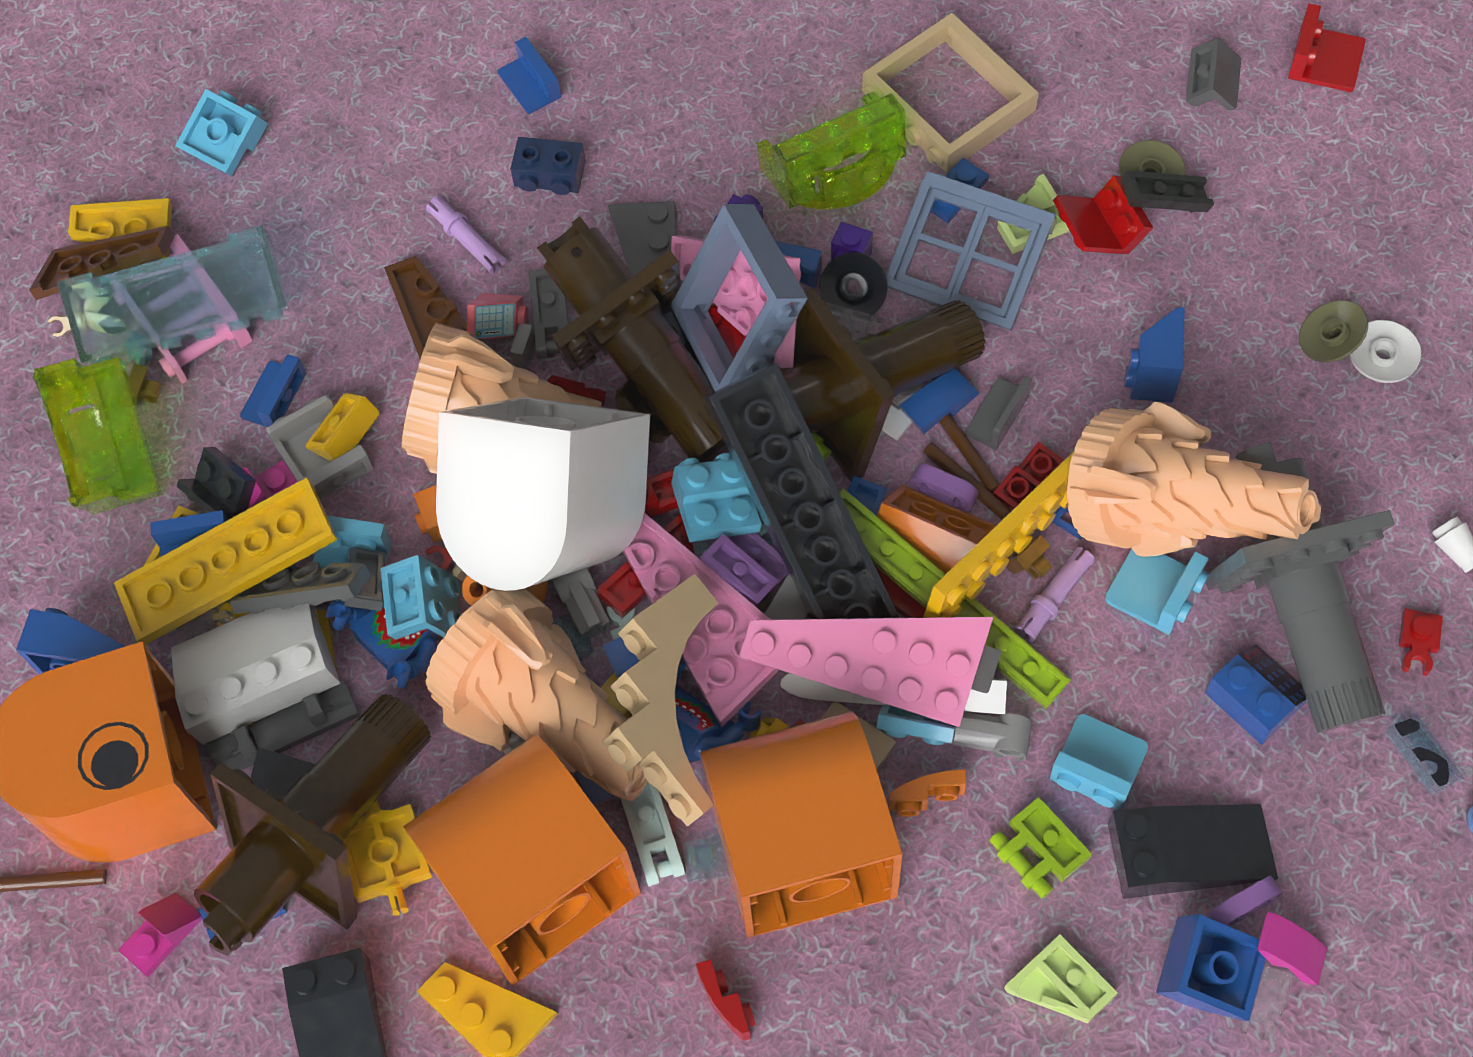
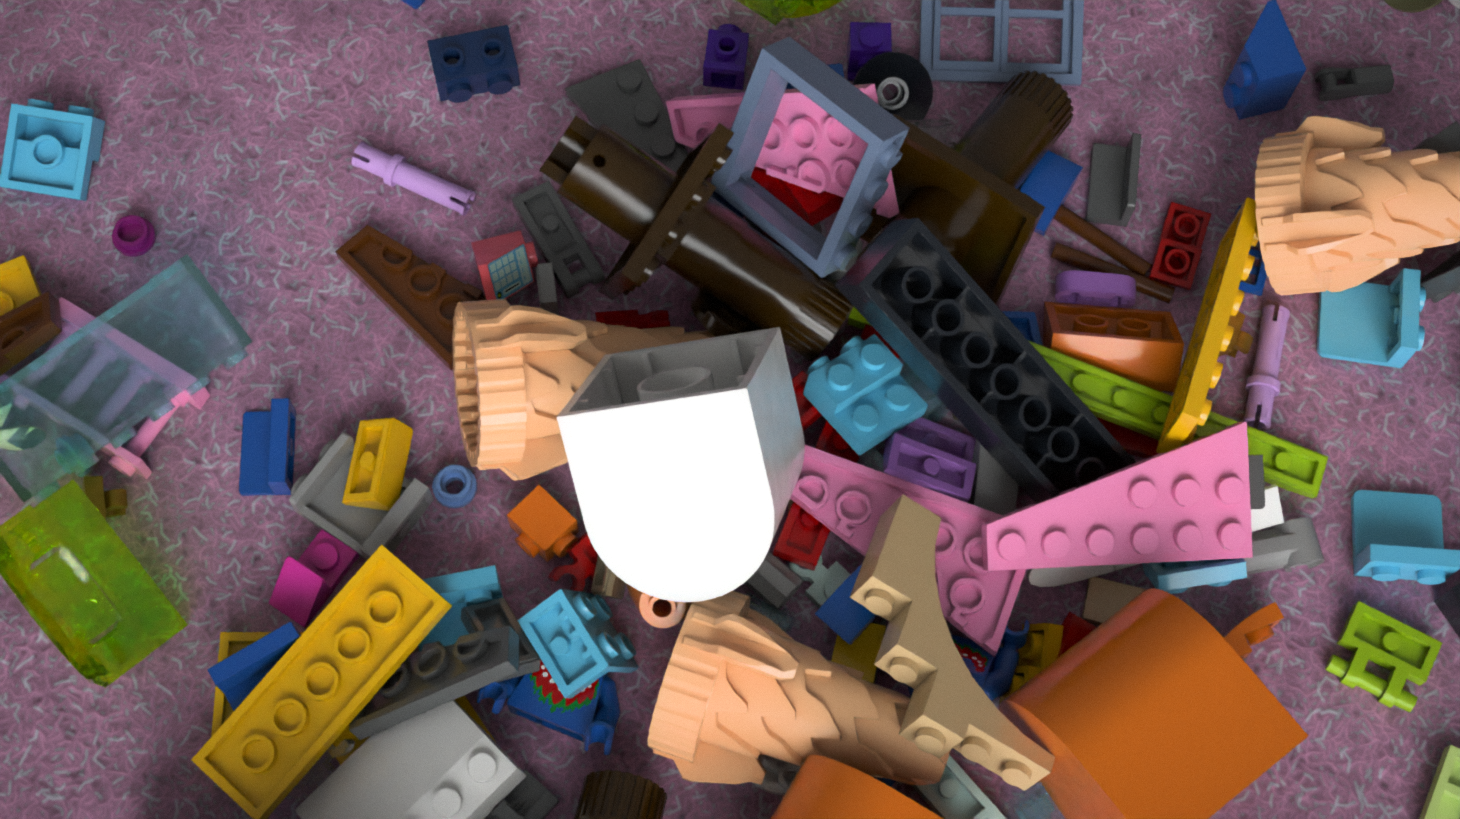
camera: 30 degrees left, 5 degrees up
(219, 484) = (262, 589): black bracket -> none
(251, 210) = (133, 236): none -> magenta plate
(387, 455) = (454, 473): none -> medium blue plate
(1245, 401) = (1358, 81): none -> dark grey bar

